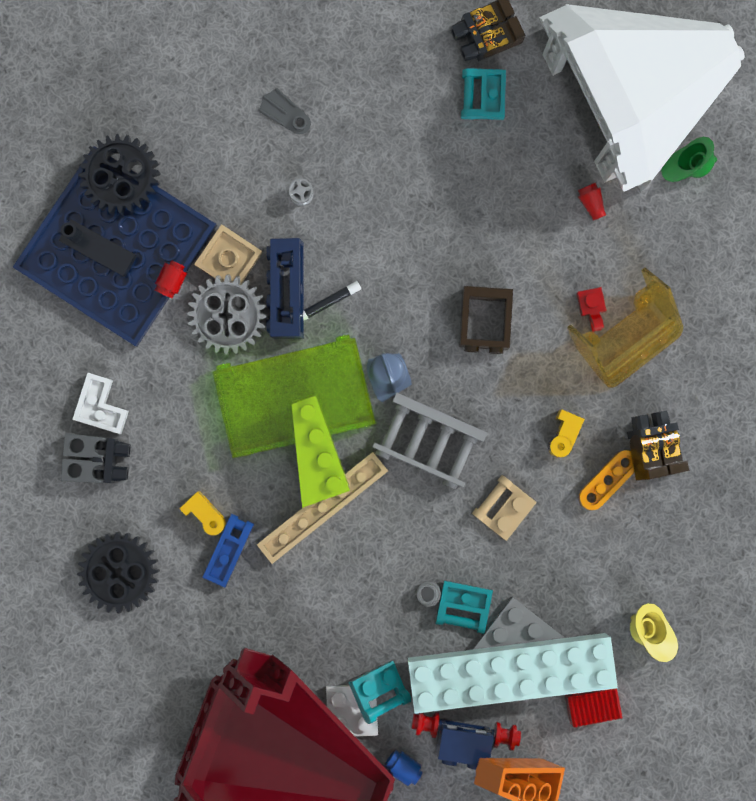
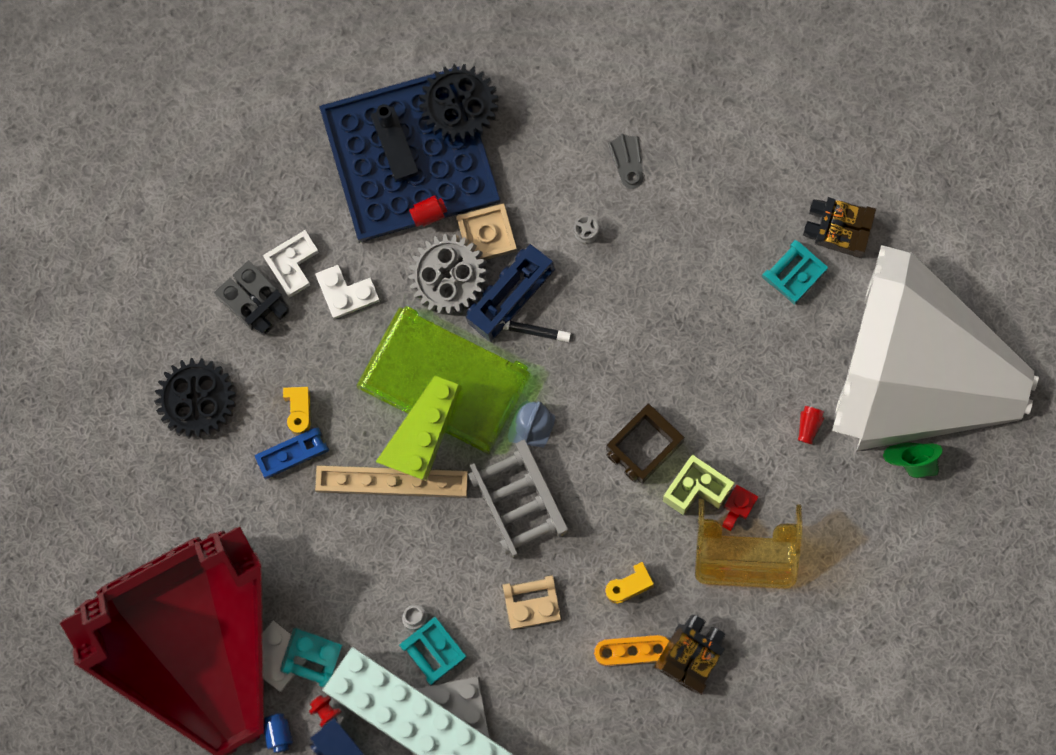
camera: 50 degrees right, 10 degrees down
(161, 400) = (344, 298): none -> white plate
(548, 313) = (700, 480): none -> yellowish green brick

